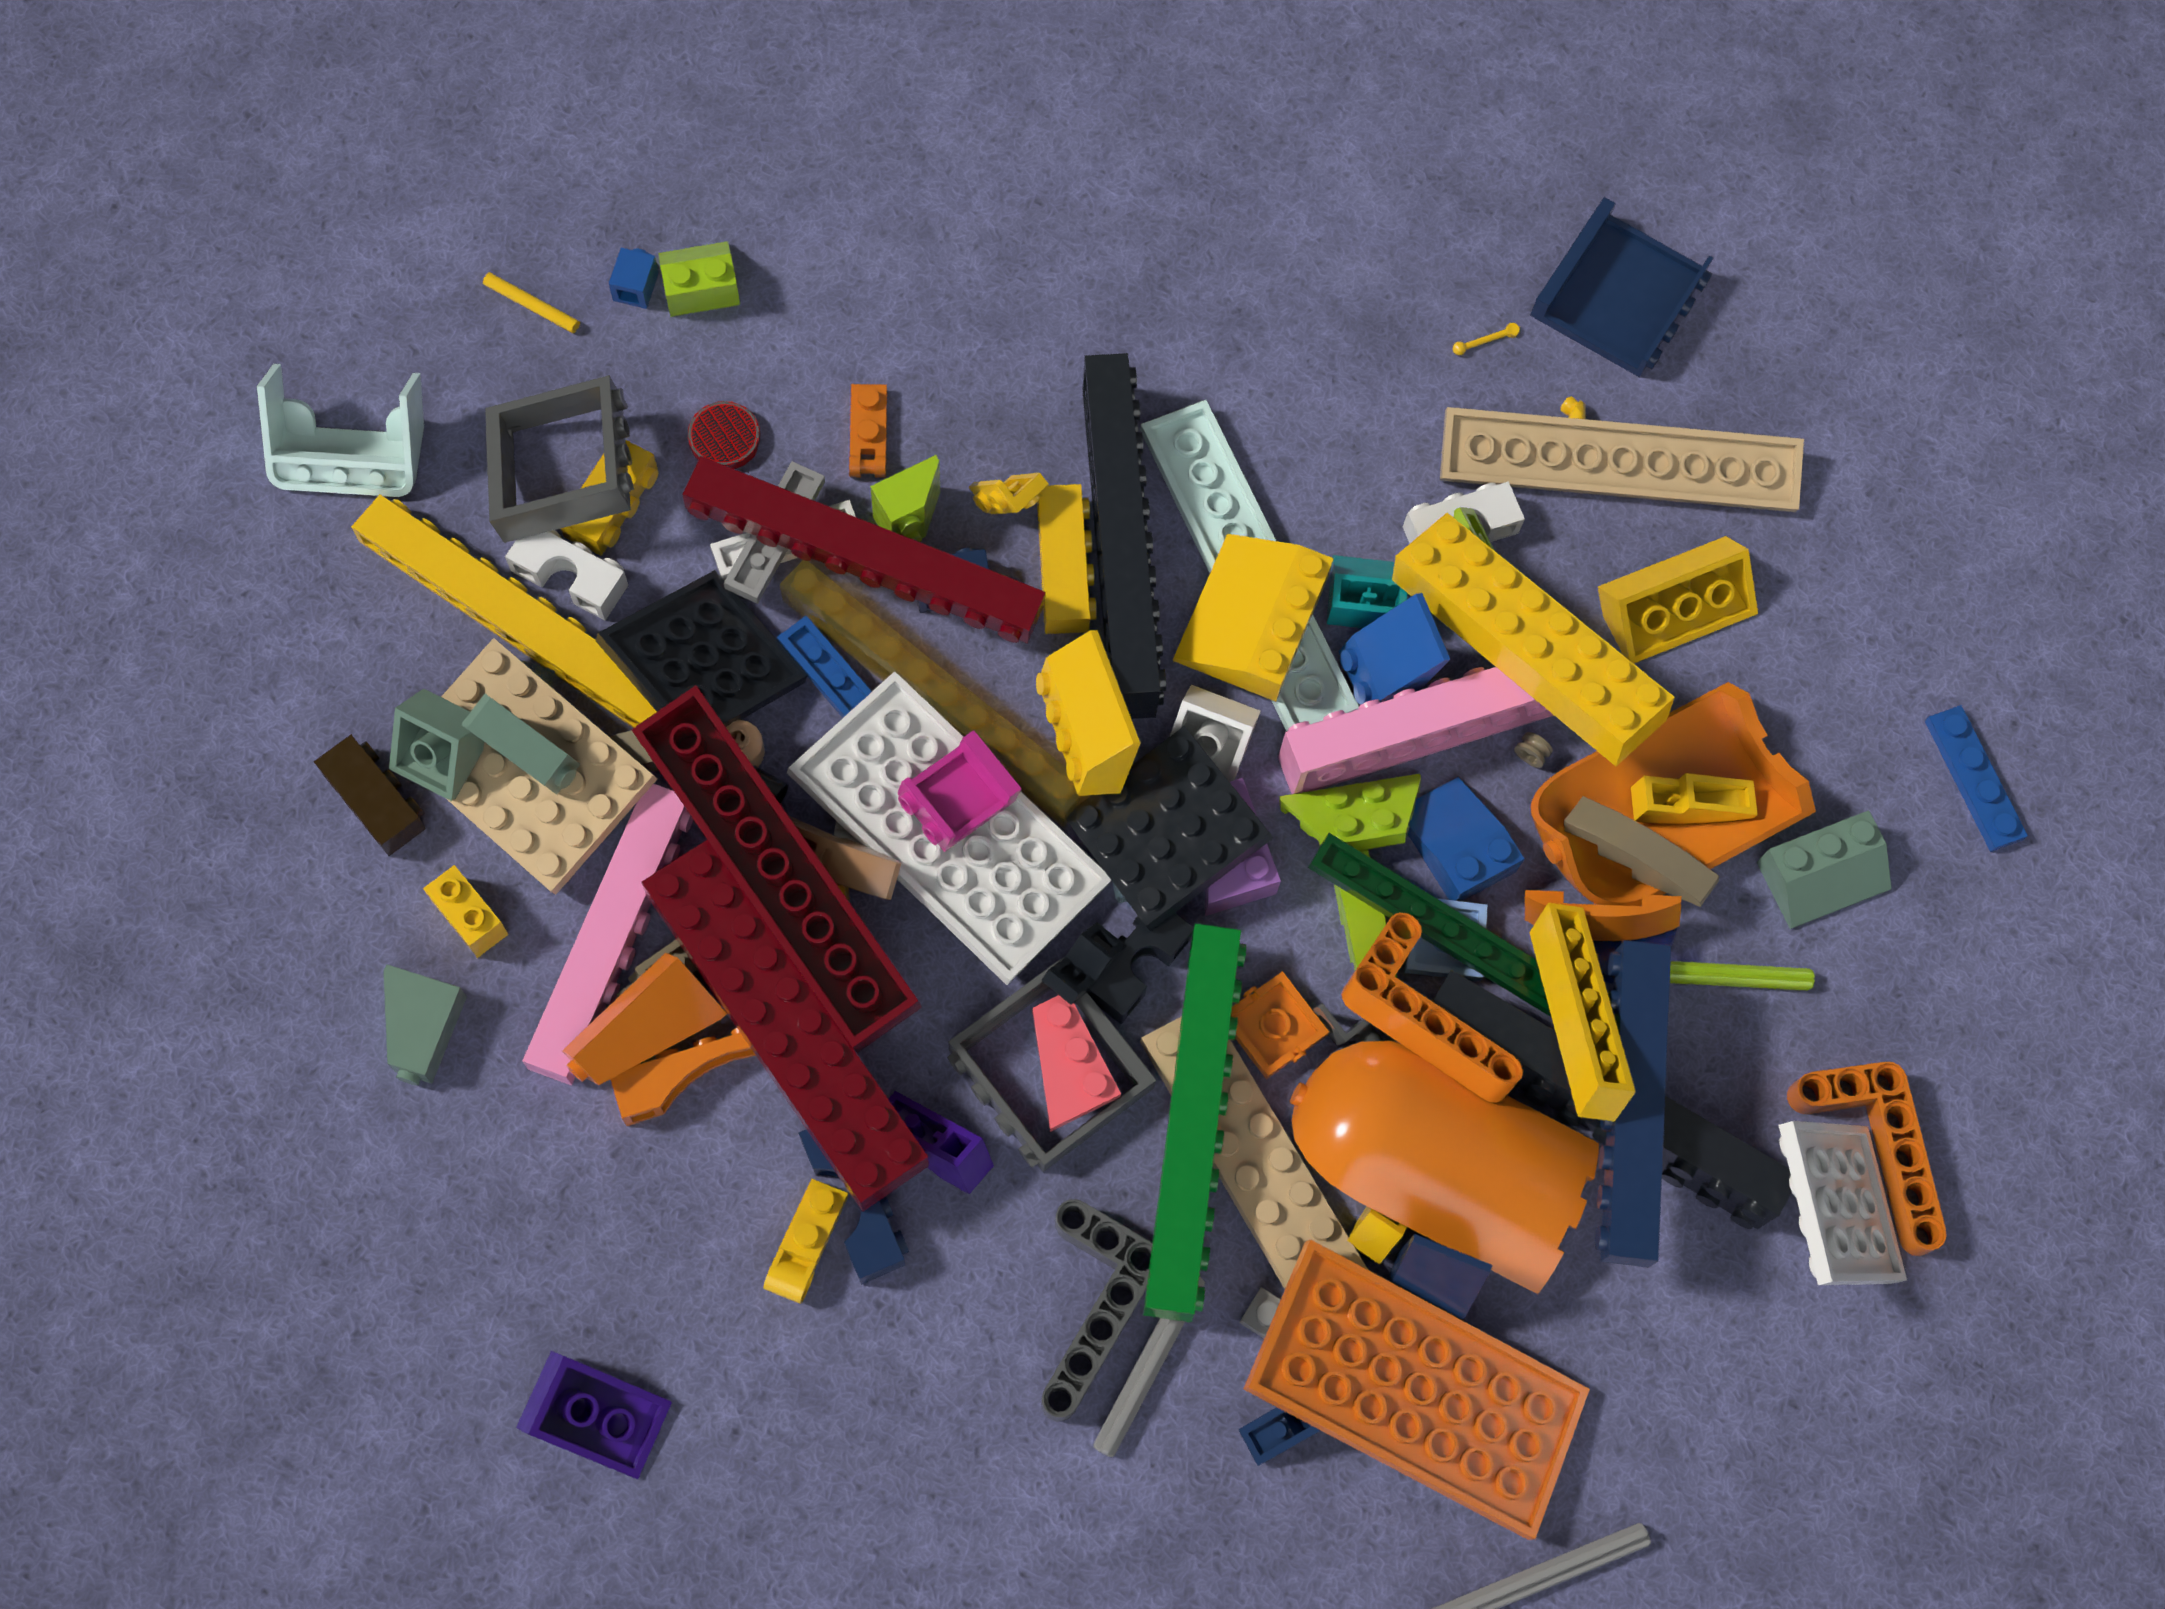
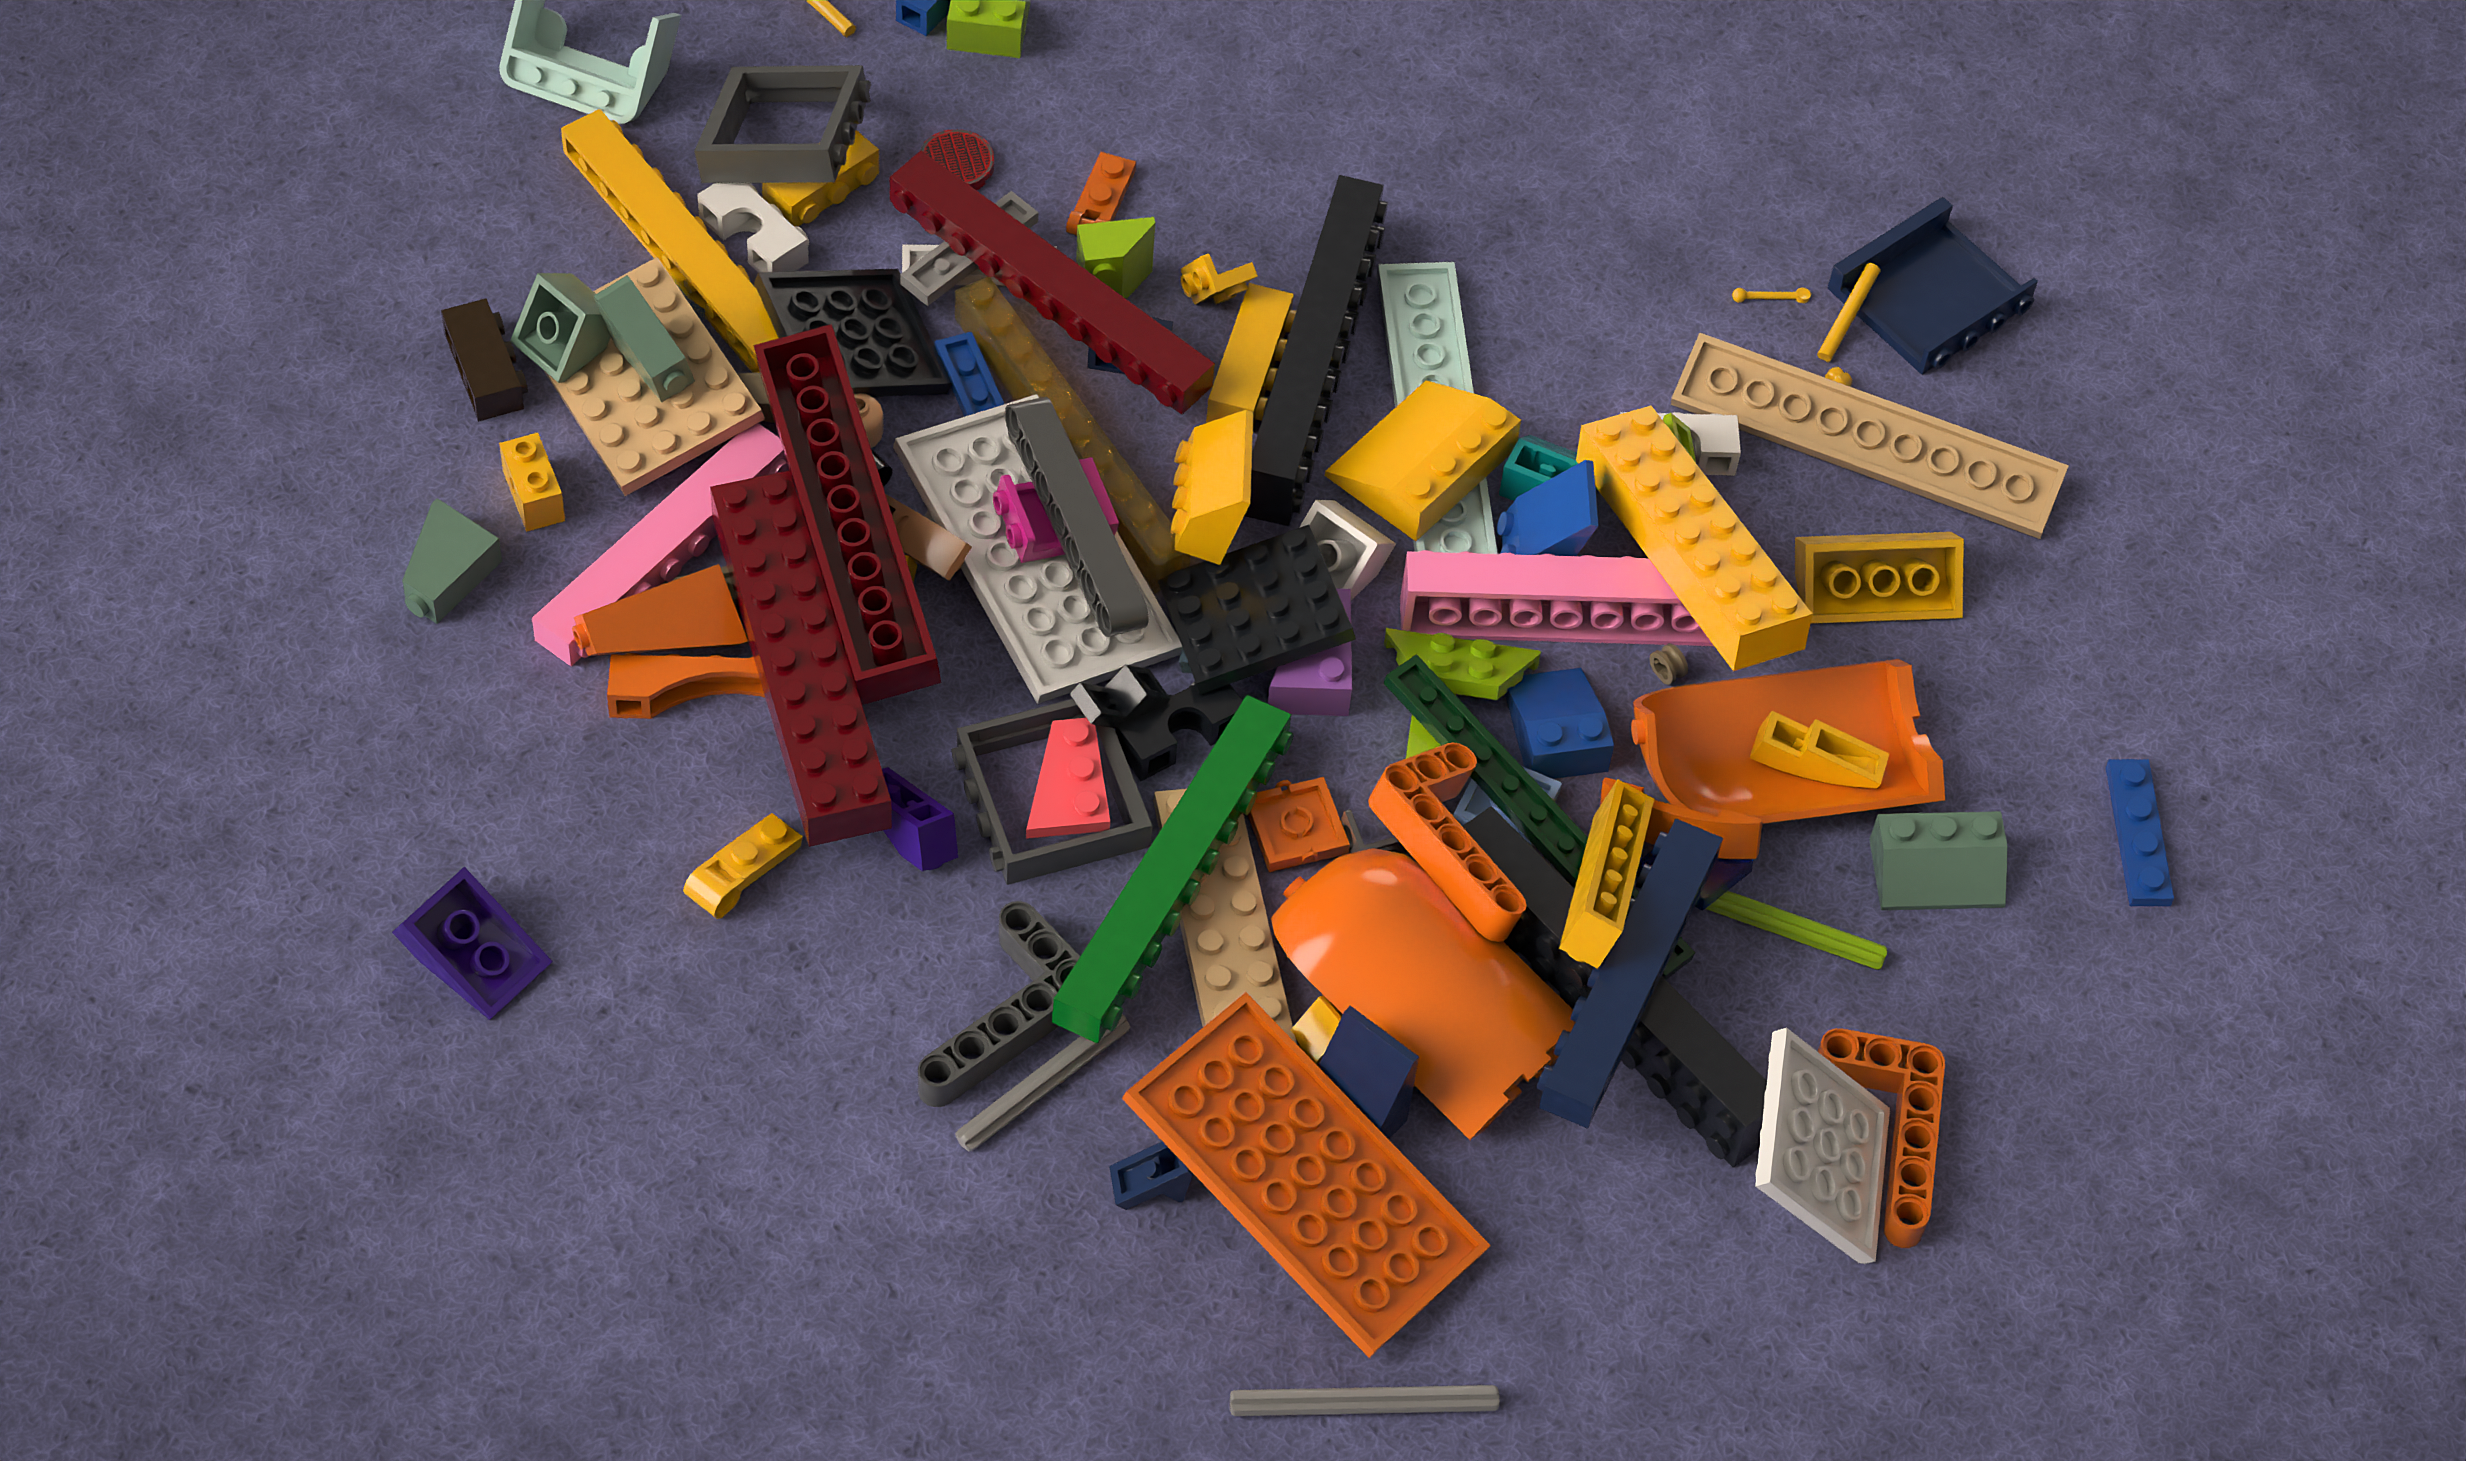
camera: 20 degrees right, 15 degrees down
(873, 1244) = (806, 882): dark blue arch -> none
(981, 795) = (1076, 517): none -> dark grey beam
(1560, 338) = (1848, 312): none -> yellow bar
(1648, 854) = (1746, 779): dark tan slope -> none

